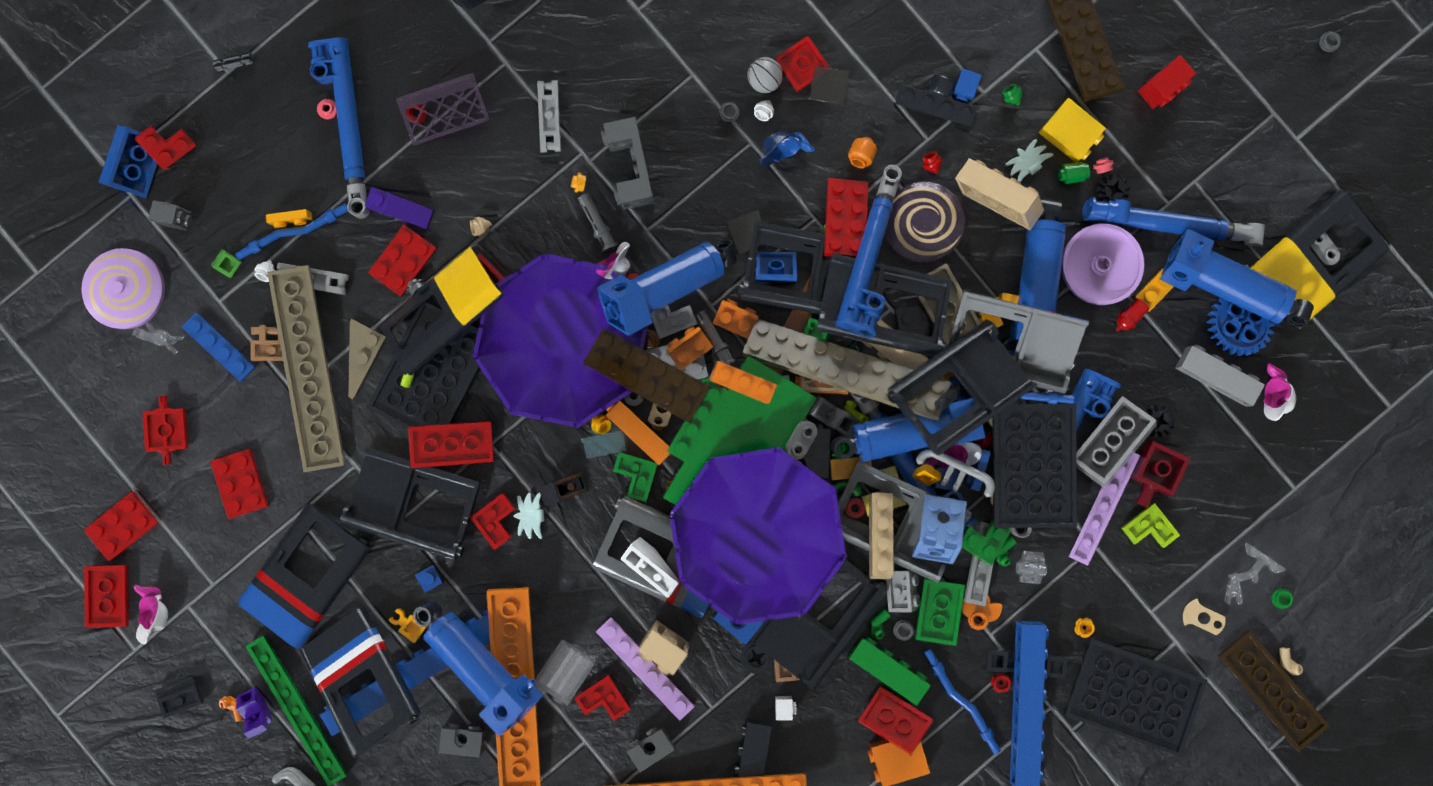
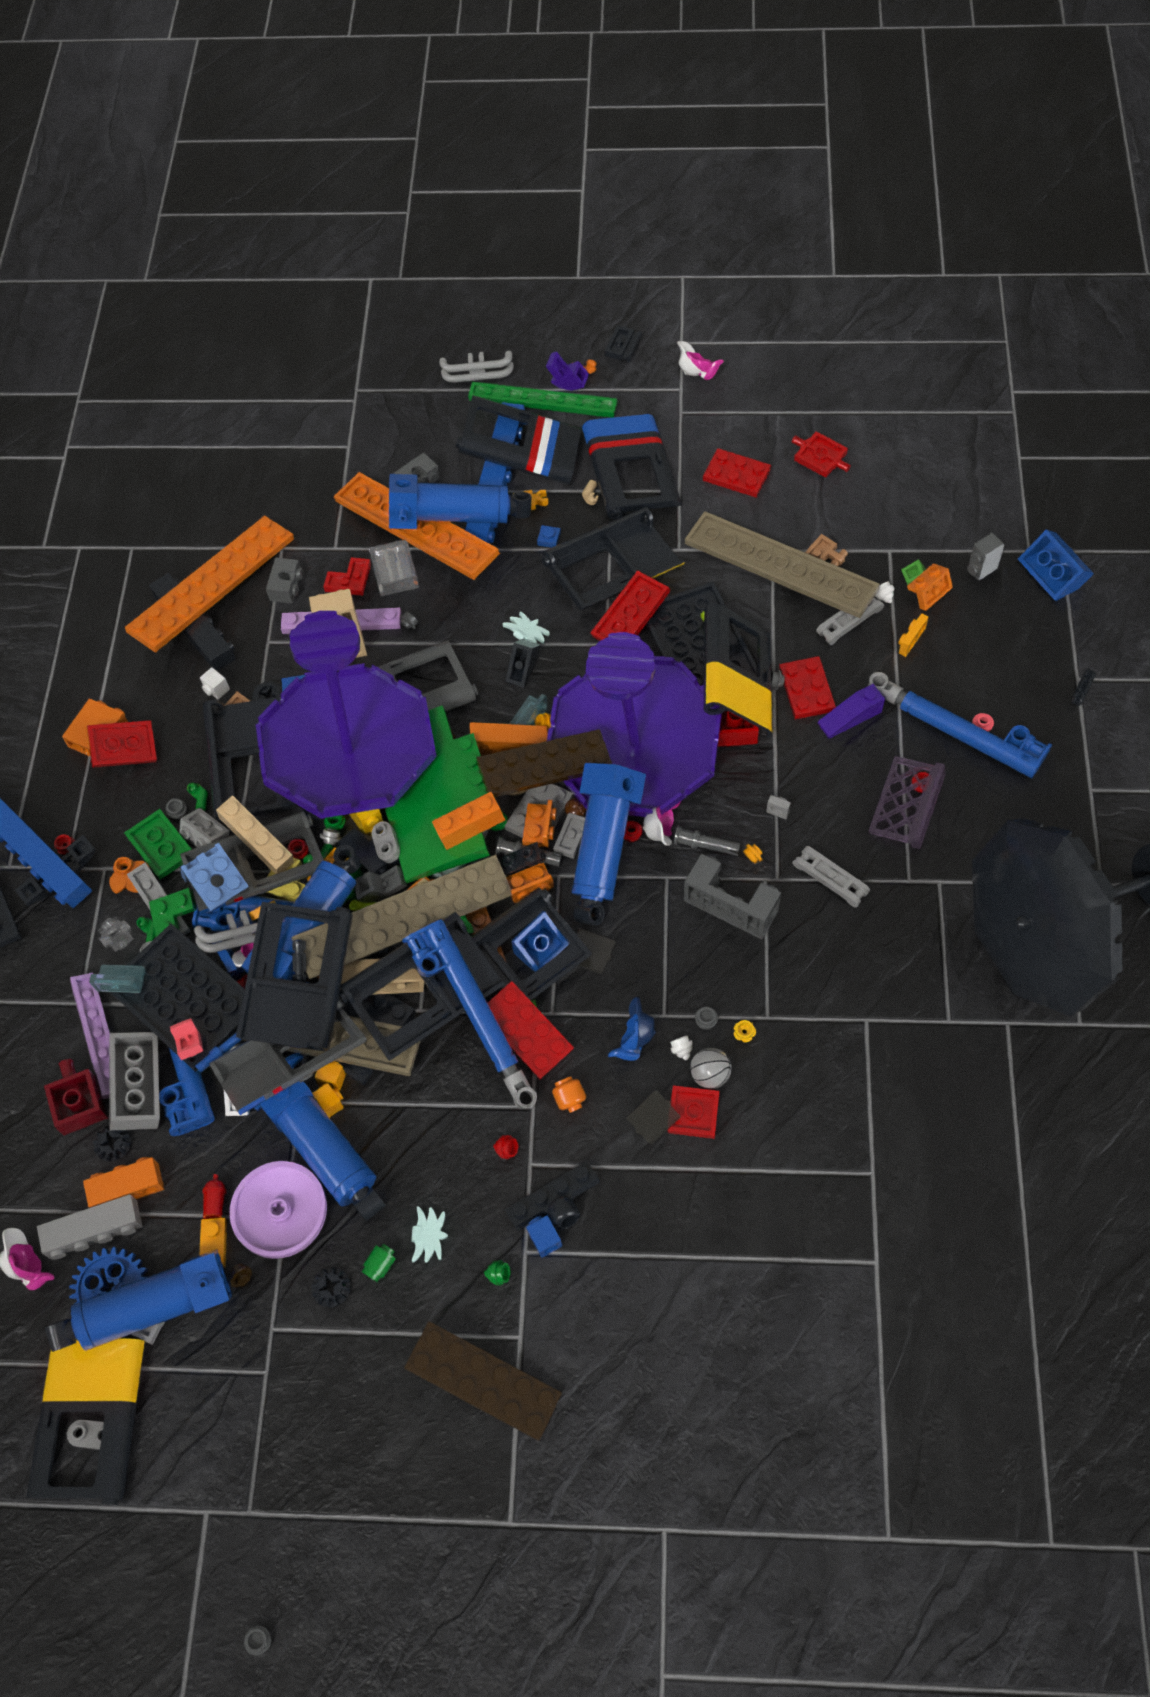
camera: 135 degrees right, 25 degrees down
(106, 596) = (735, 348): red plate -> none
(121, 526) = (776, 388): red plate -> none
(123, 288) = (956, 499): lavender dish -> none
(158, 337) = (896, 495): clear piece -> none
(165, 151) = (1045, 590): red plate -> none
(218, 347) = (854, 526): blue plate -> none
(230, 239) = (931, 585): none -> orange bracket
(256, 246) = (890, 661): blue bar -> none
(362, 583) = (588, 493): none -> tan arm
(363, 351) = (758, 609): dark tan wing -> none
(479, 226) = (783, 757): tan plate -> none
(489, 520) = (547, 598): red plate -> none
(524, 195) = (778, 806): none -> light grey plate
(601, 613) = (408, 620): none -> dark grey plate
(642, 474) = (471, 712): green plate -> none
(651, 566) = (413, 670): white slope -> none
(717, 84) = (744, 1025): none -> yellow plate
(727, 334) = (521, 858): none -> black hinge
(888, 670) = (160, 773): green brick -> none
(925, 222) = (462, 1098): clear purple dish -> none
(986, 733) = (122, 809): blue bar -> none
(1000, 193) = (419, 1163): tan brick -> none
(1064, 422) = (187, 1039): none -> coral bracket
(1064, 520) = (118, 978): none -> clear light blue panel
(1073, 131) = (414, 1295): yellow brick -> none
(1084, 632) = (28, 935): light orange plate -> none
(1103, 165) = (358, 1295): coral plate -> none
(1121, 213) = (306, 1261): blue piece -> none
(1151, 521) = (46, 1061): lime plate -> none
(1159, 250) = (239, 1275): none -> dark brown plate
(1167, 83) = (372, 1420): red brick -> none
(1176, 382) = (135, 1179): none -> orange brick

